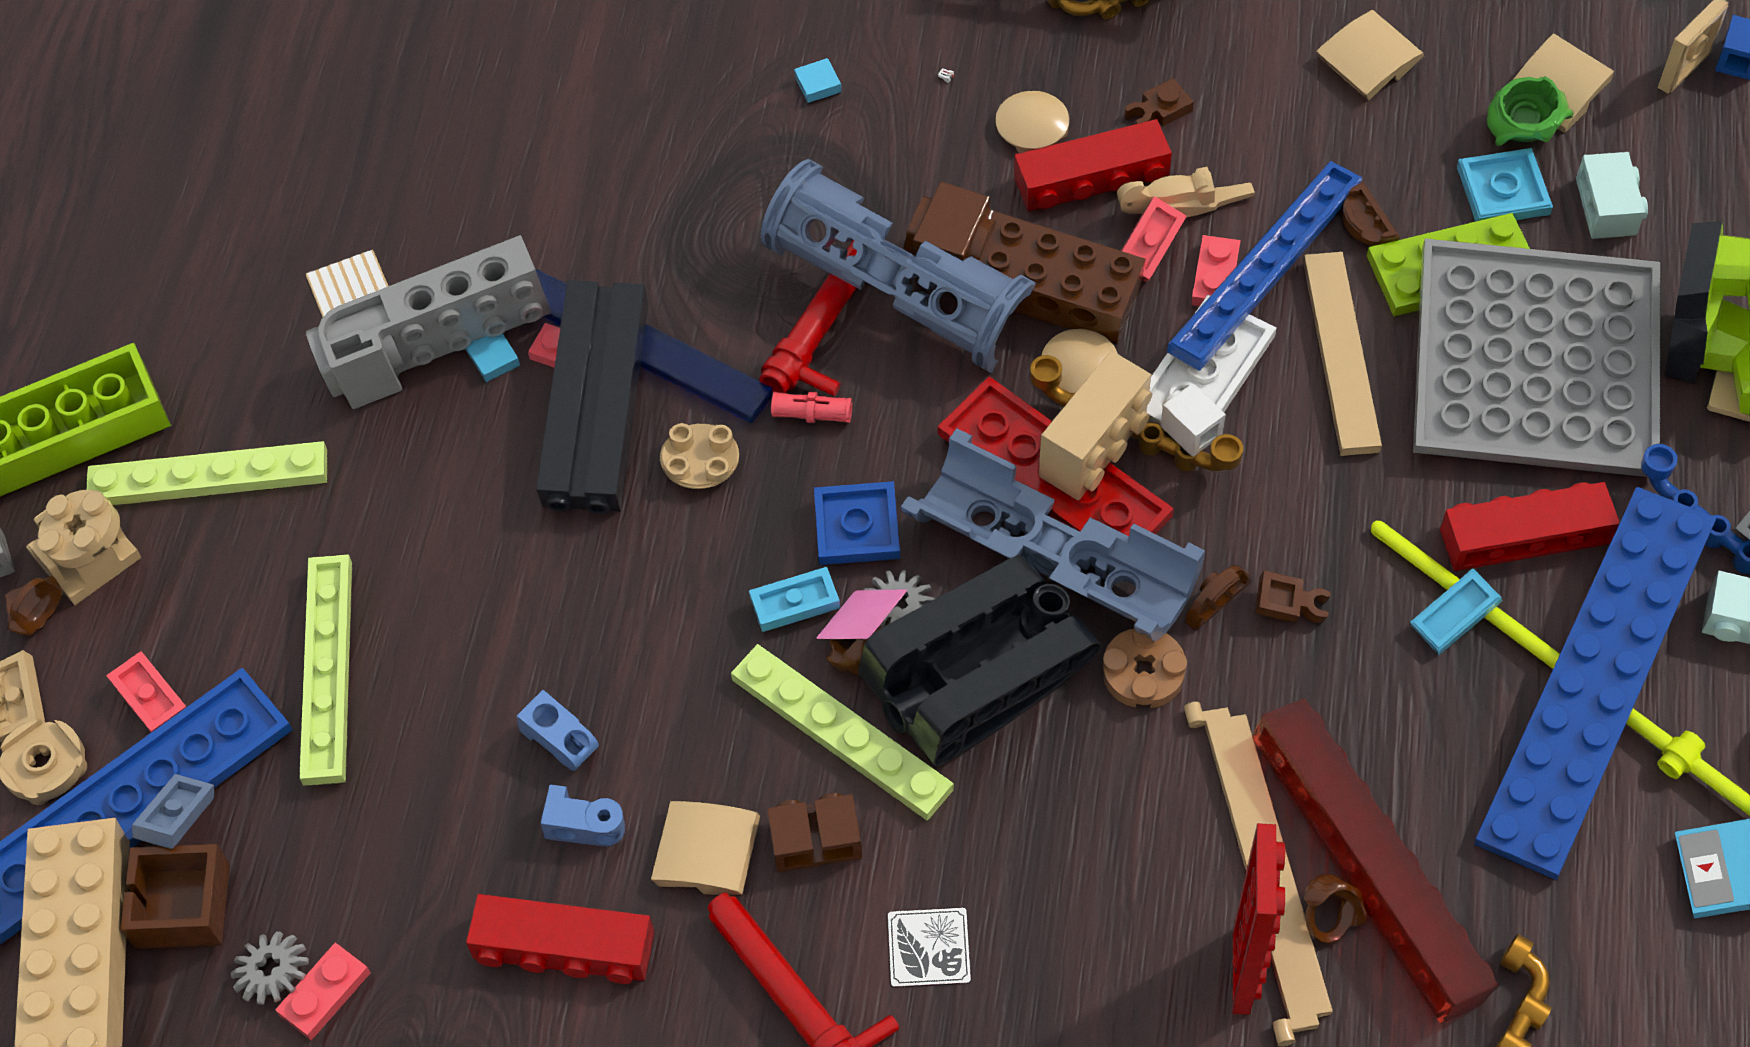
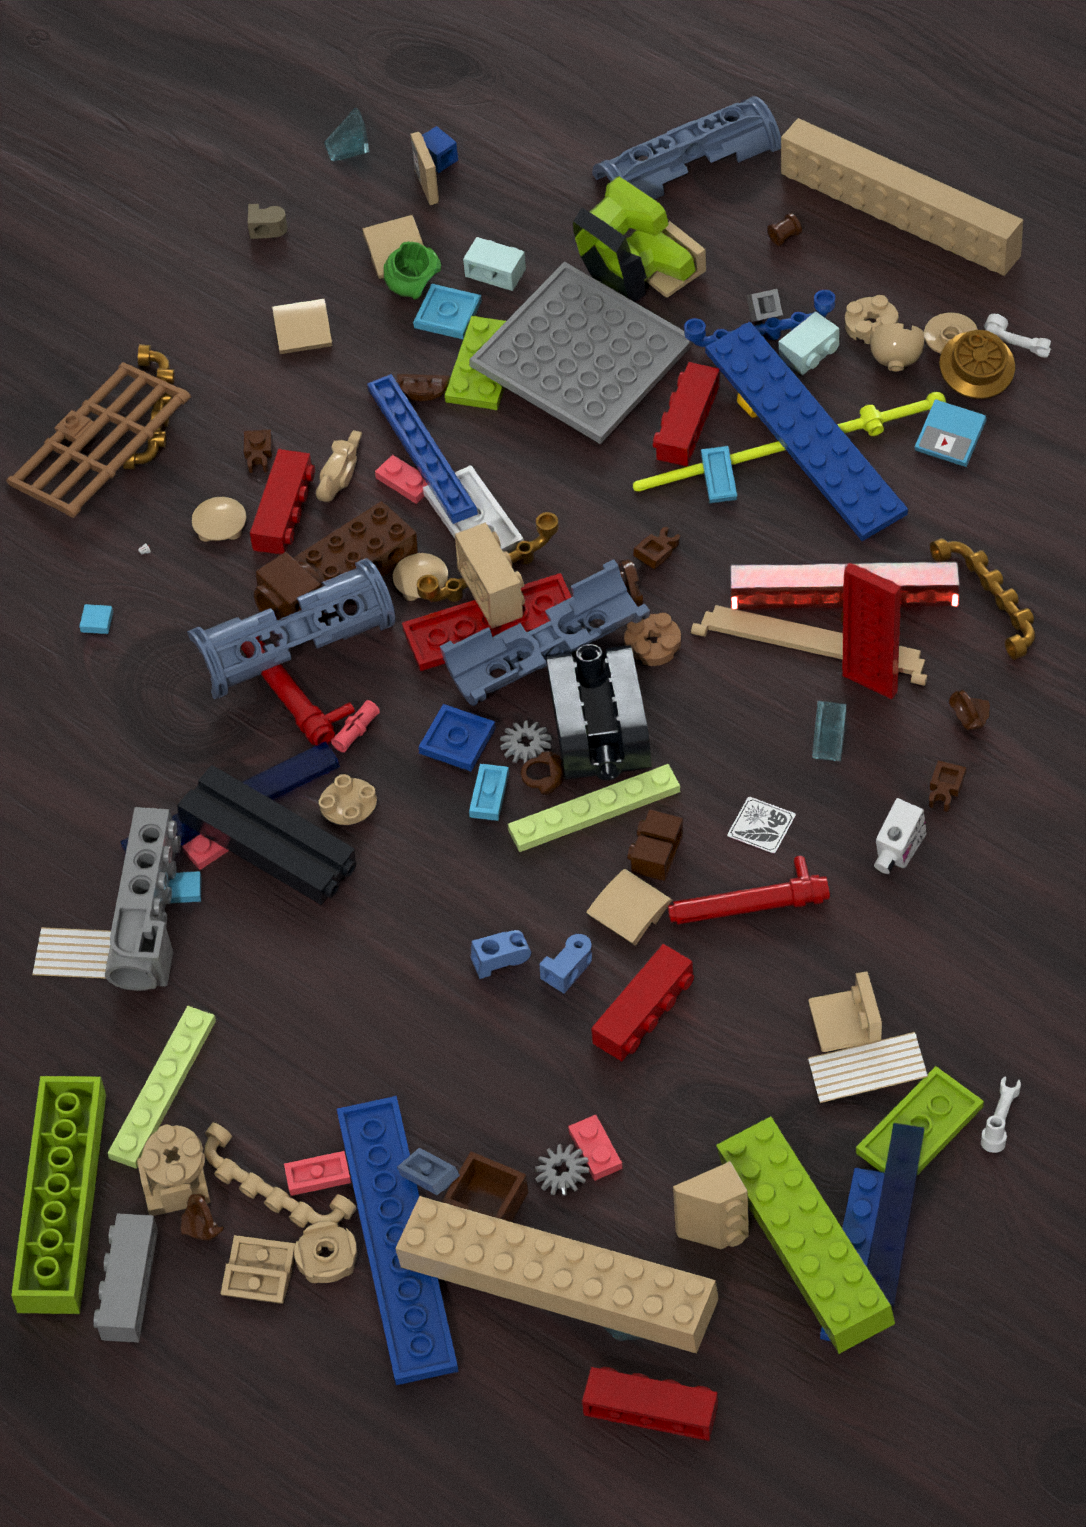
camera: 60 degrees left, 5 degrees down
(106, 636) = (275, 1197): none -> tan bar
(326, 671) = (366, 1064): yellowish green plate -> none
(861, 614) = (528, 756): bright pink sticker -> none
(1115, 958) = (829, 730): none -> clear light blue slope
(1154, 234) = (357, 491): coral plate -> none
(1192, 419) = (513, 530): white brick -> none
(1342, 354) = (507, 445): tan tile -> none

